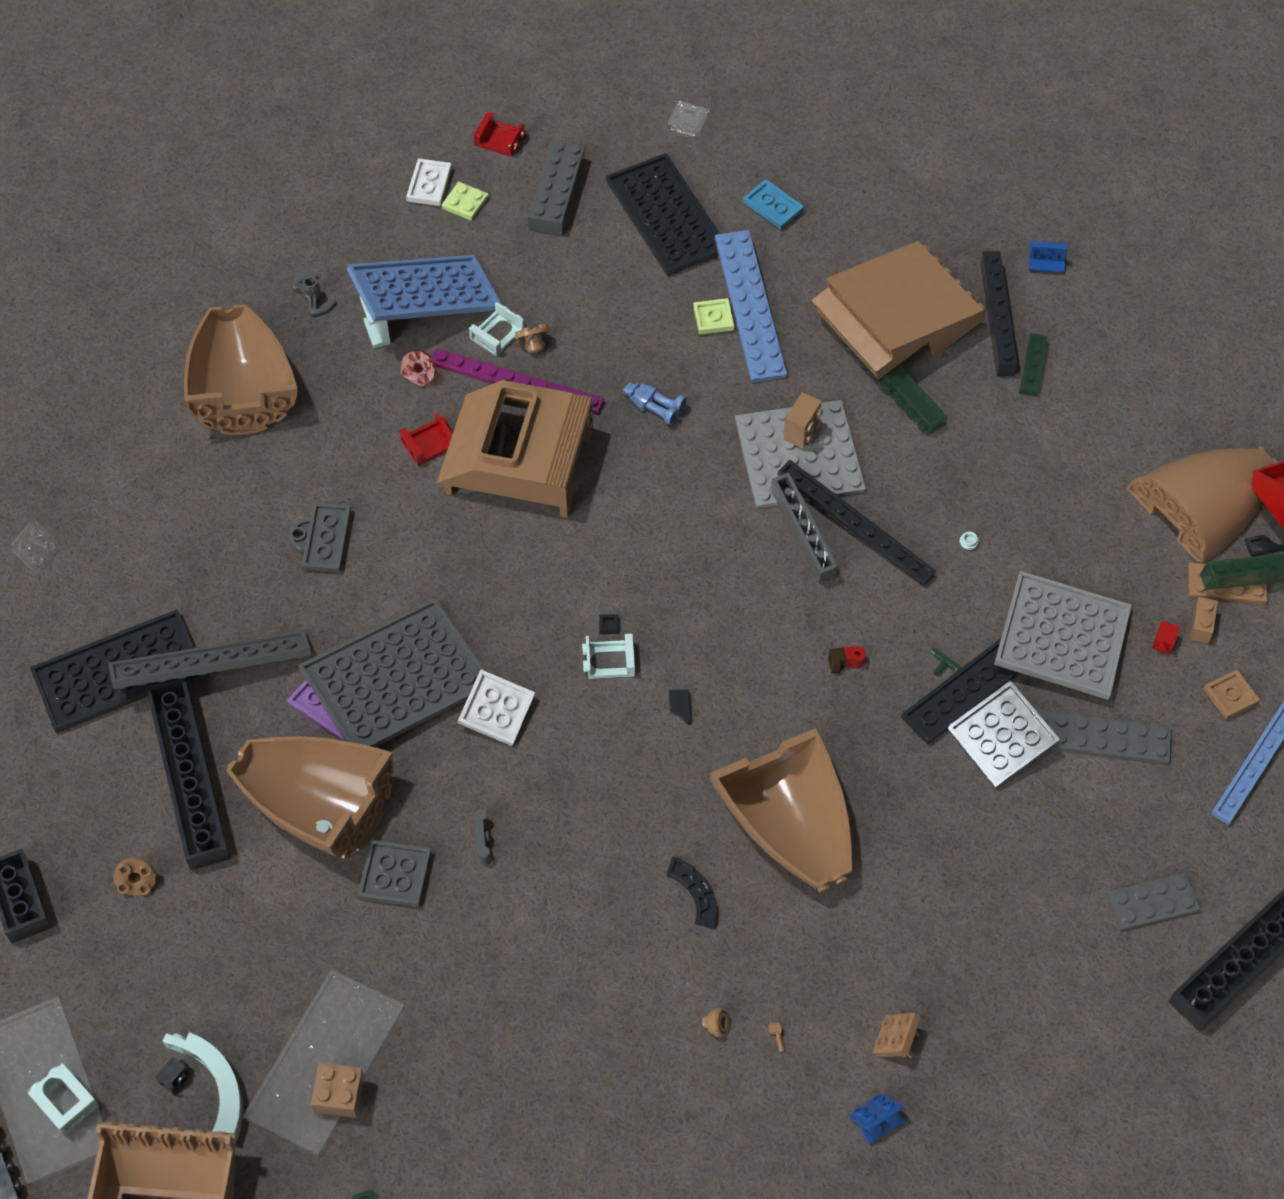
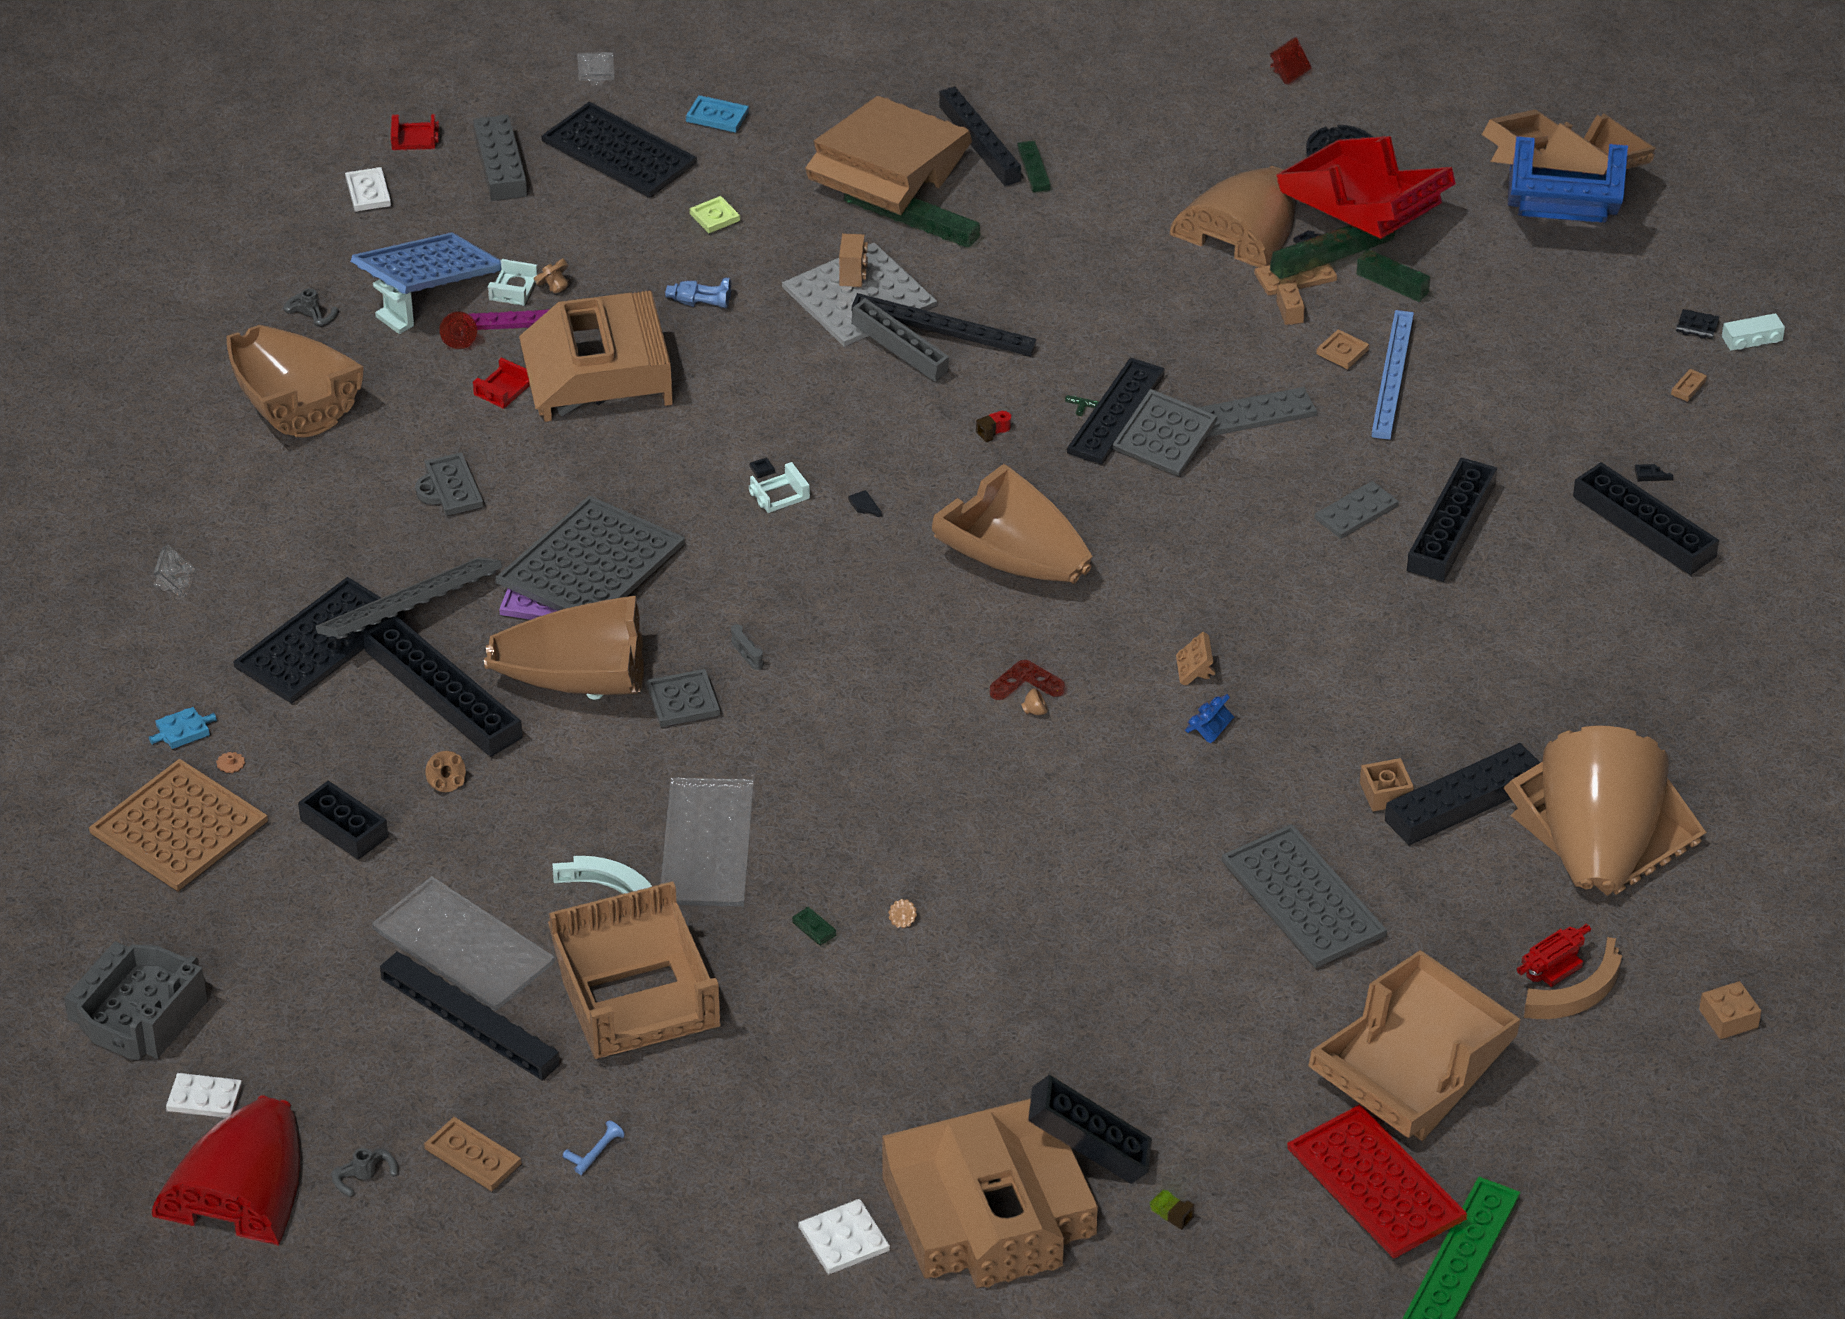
camera: 25 degrees left, 15 degrees down
(77, 1113) = (503, 947): light aqua panel -> none
(173, 1075) = (576, 892): black brick -> none
(337, 1090) = (735, 847): medium nougat brick -> none
(465, 201) = (413, 194): yellowish green plate -> none
(496, 707) = (700, 553): white plate -> none
(698, 888) = (962, 623): black tile -> none
(729, 981) = (1028, 676): none -> clear red beam
(750, 306) = (745, 196): medium blue plate -> none
(775, 1028) = (1088, 693): medium nougat hand -> none
(969, 540) = (1052, 310): light aqua plate -> none
(1047, 257) = (999, 80): blue bracket -> none
(1063, 635) = (1175, 348): light grey plate -> none
(1165, 637) = (1264, 325): red brick -> none

